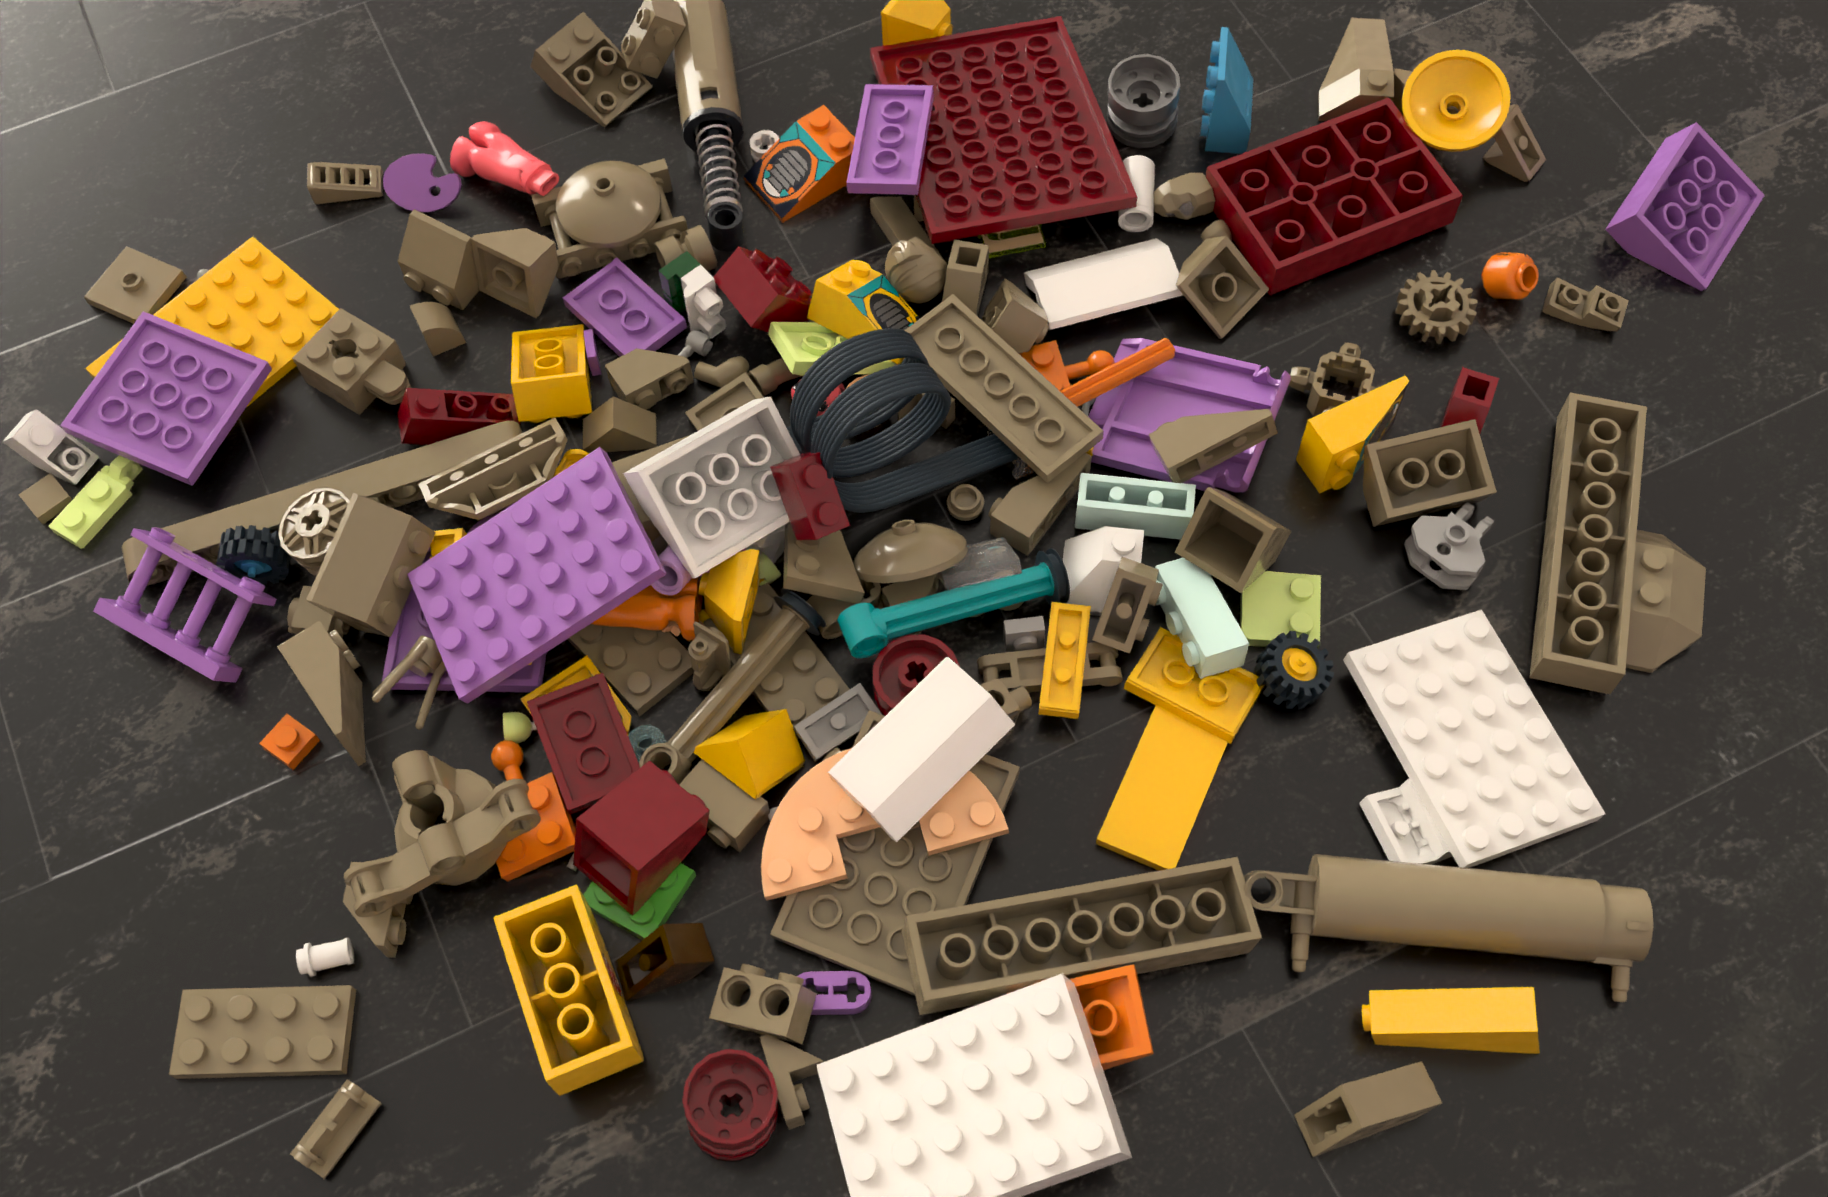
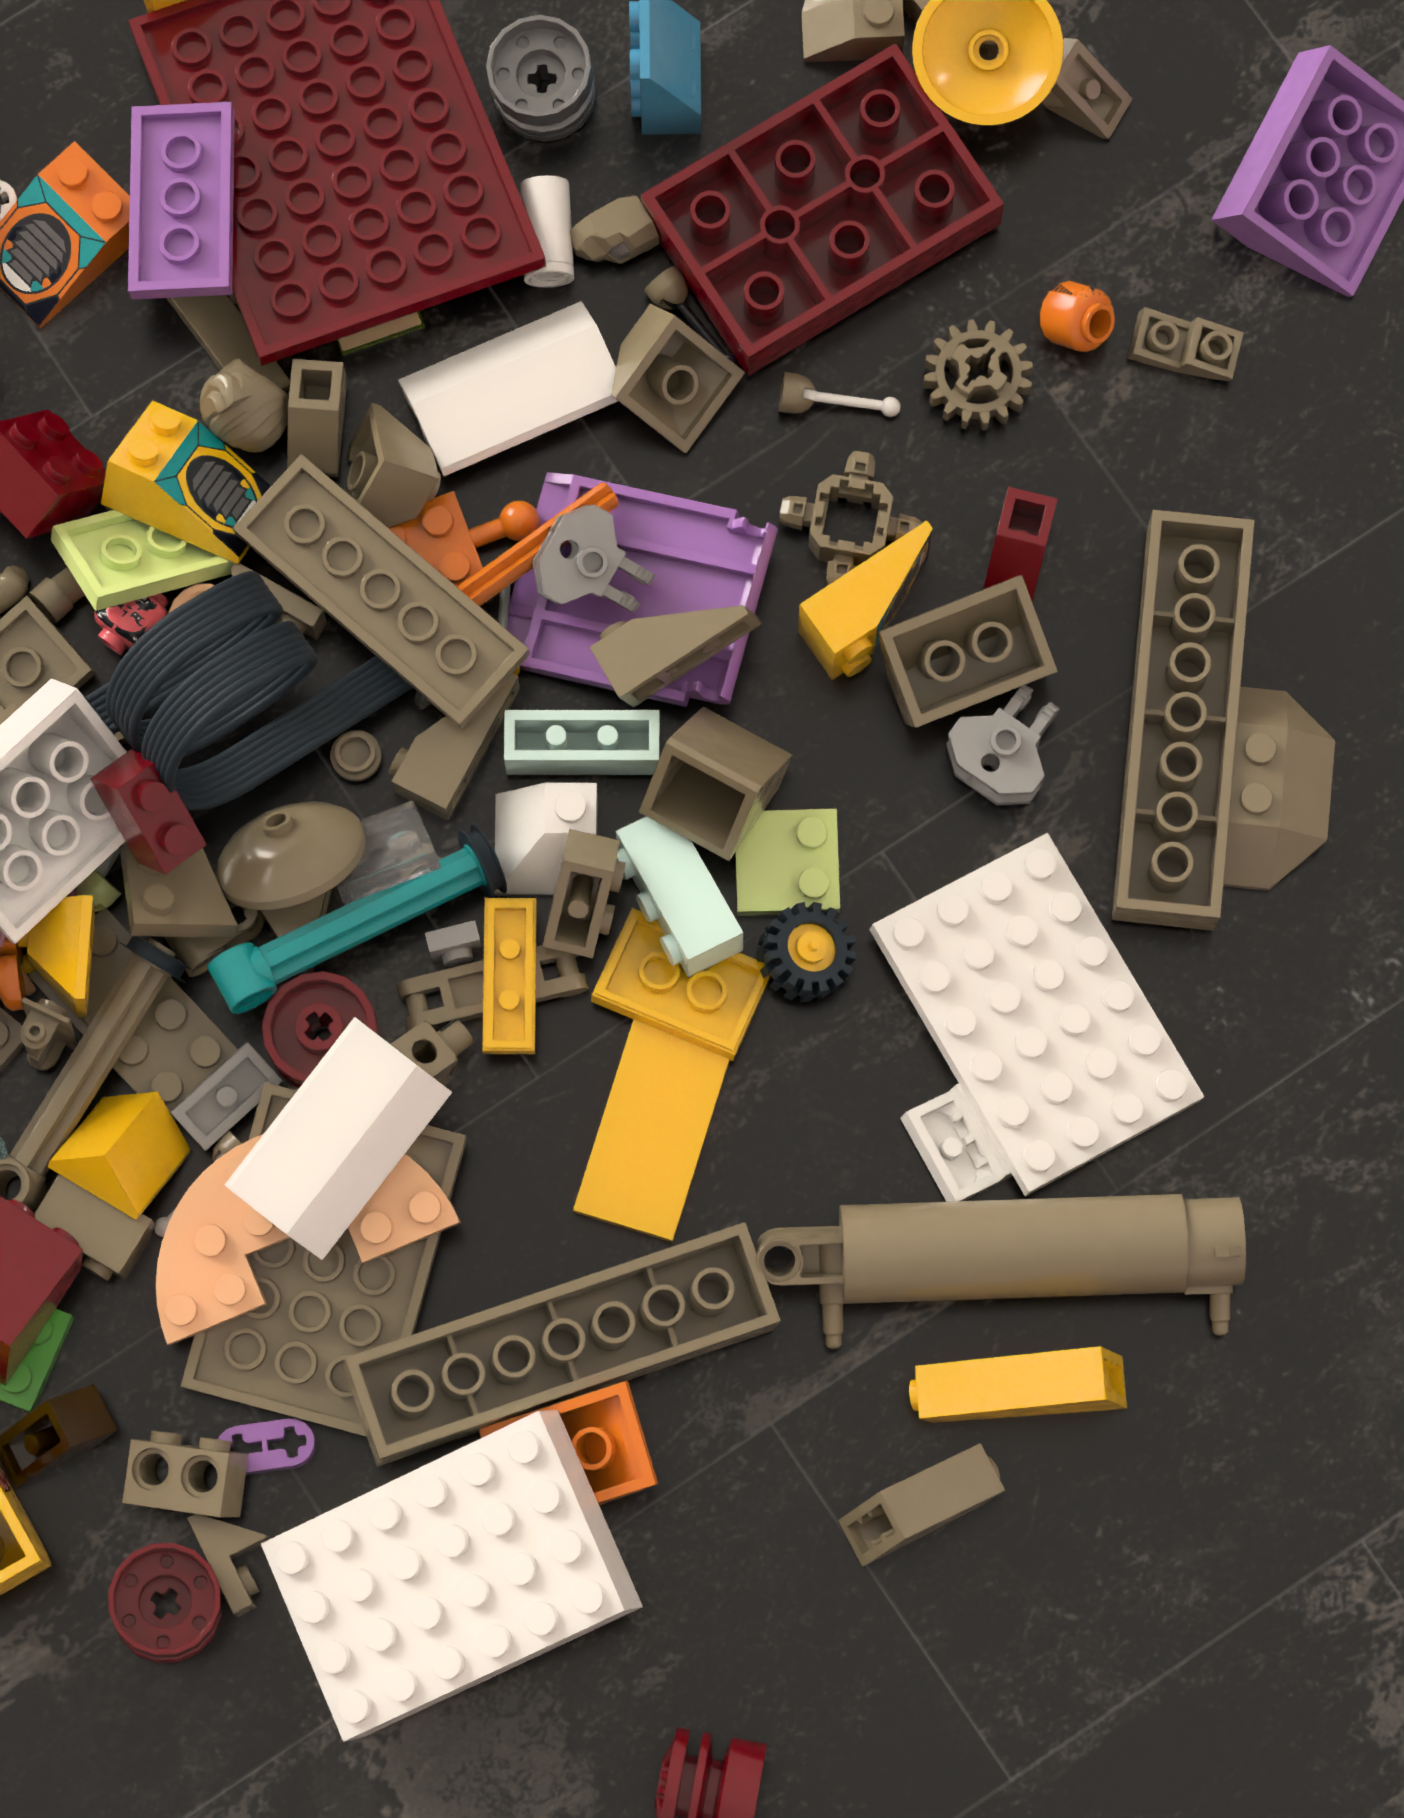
camera: 10 degrees left, 15 degrees up
(1147, 379) = (589, 564): none -> light grey hinge
(1306, 307) = (799, 394): none -> hinge

